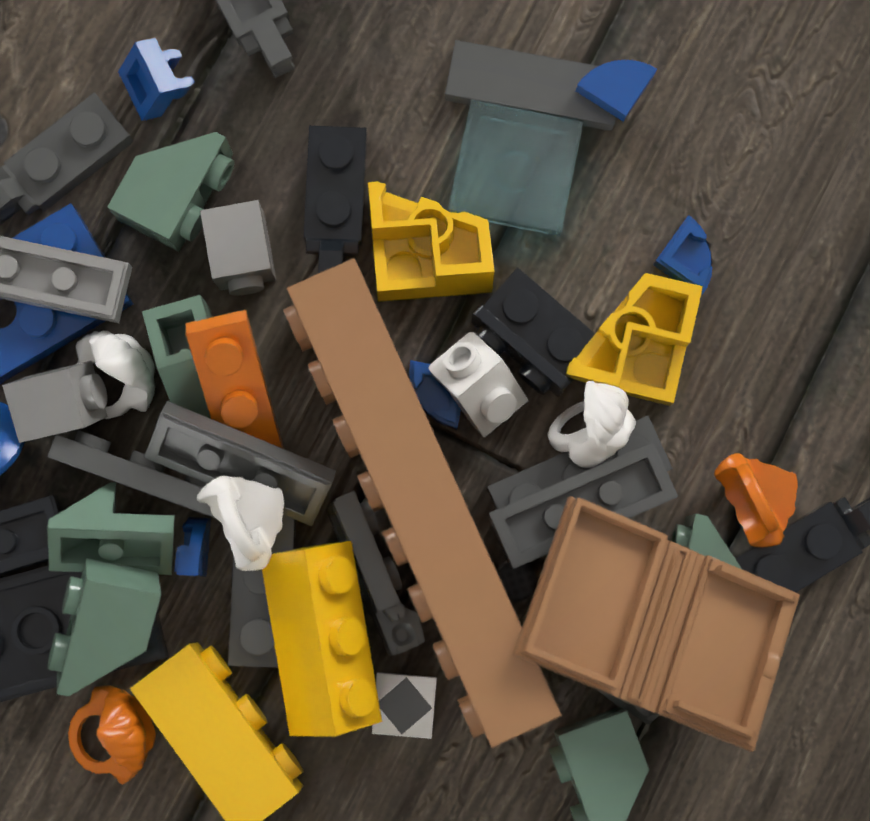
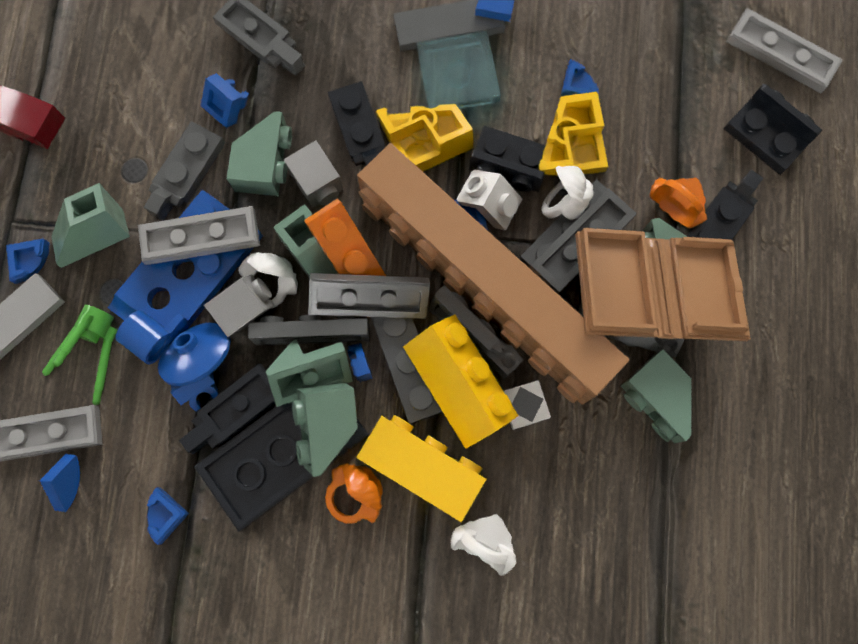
camera: 20 degrees left, 5 degrees down
(249, 517) = (386, 322): white piece -> none

